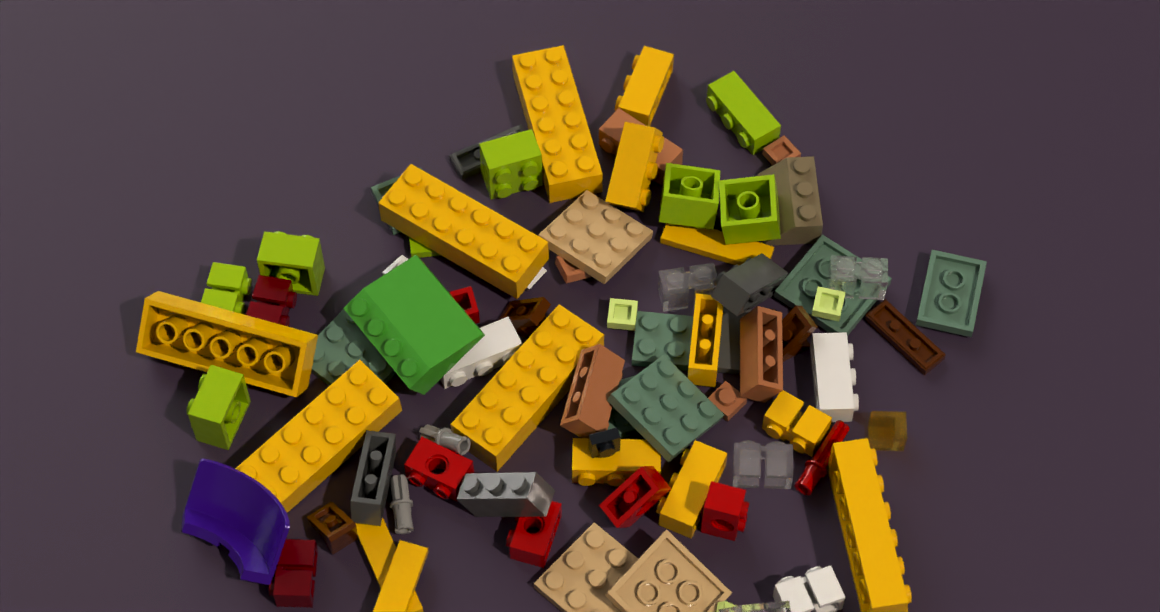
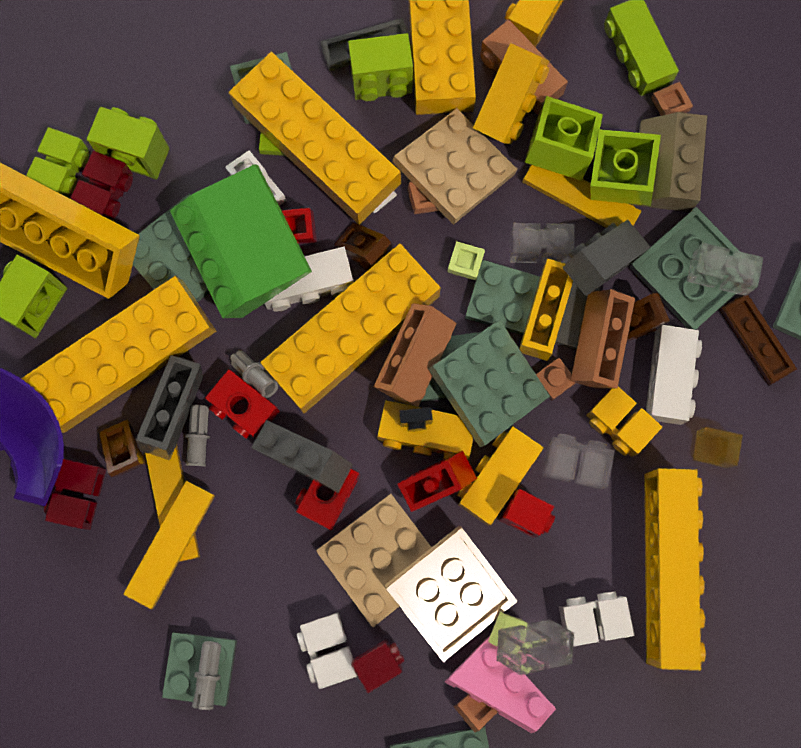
camera: 10 degrees right, 20 degrees up
(817, 466) = (642, 464): red axle -> none
(828, 303) = (686, 293): yellowish green plate -> none

